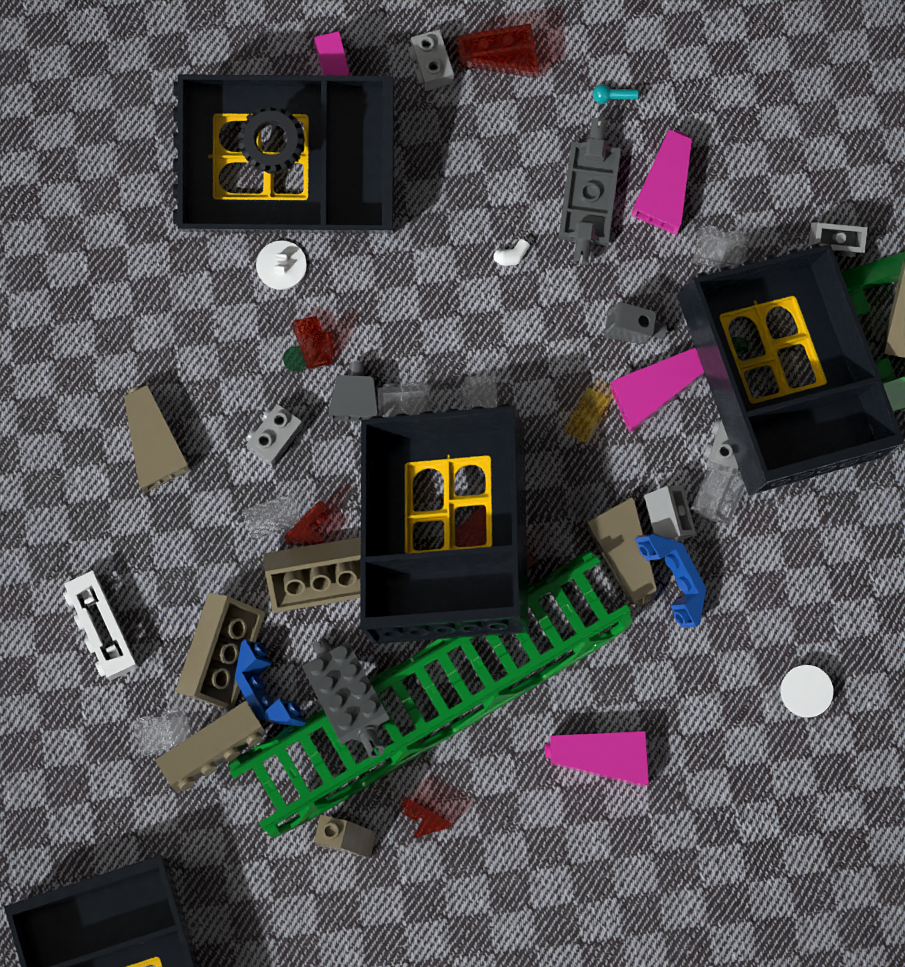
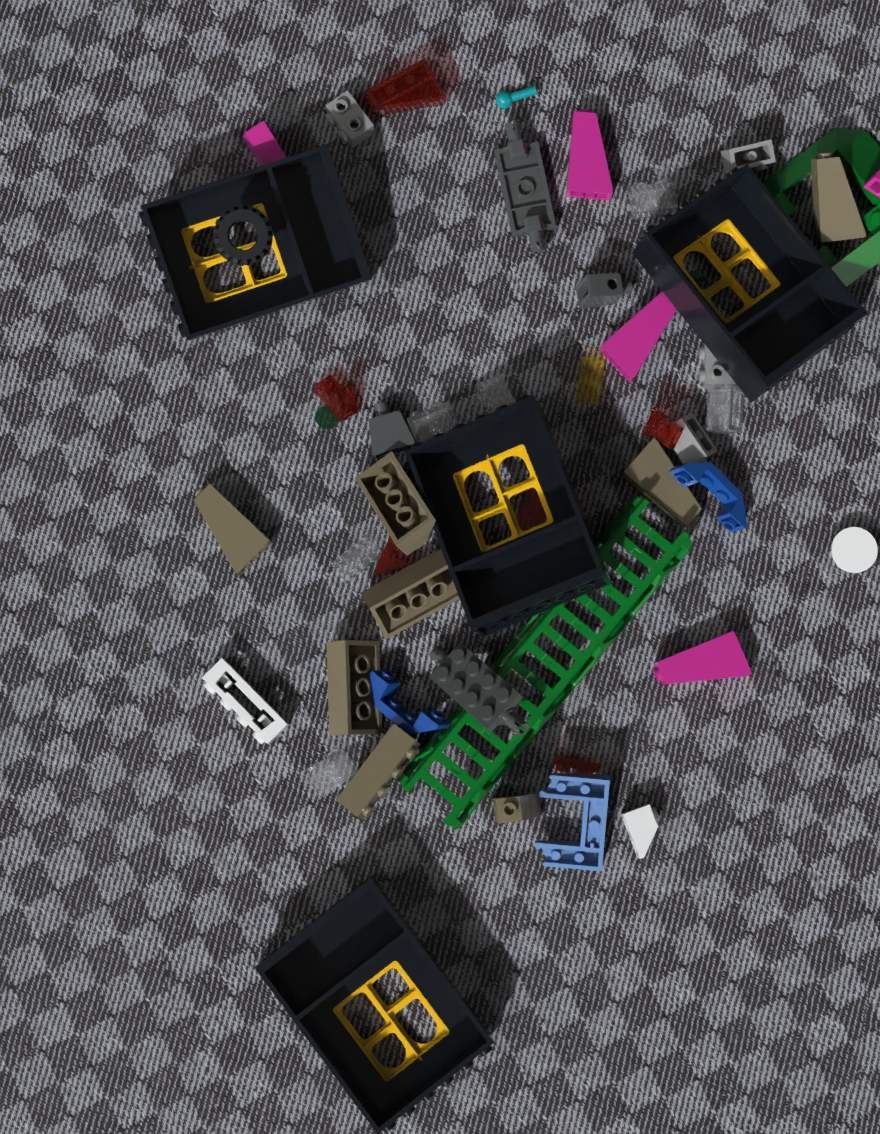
camera: 20 degrees left, 5 degrees up
(274, 434) = (332, 488): light grey brick -> none
(281, 265) = (284, 340): white piece -> none
(333, 472) = (397, 503): none -> dark tan slope
(406, 913) = (589, 851): none -> medium blue wedge
(471, 907) = (641, 827): none -> white slope
(512, 256) = (479, 266): white arm -> none
(644, 490) = (662, 428): none -> clear red slope

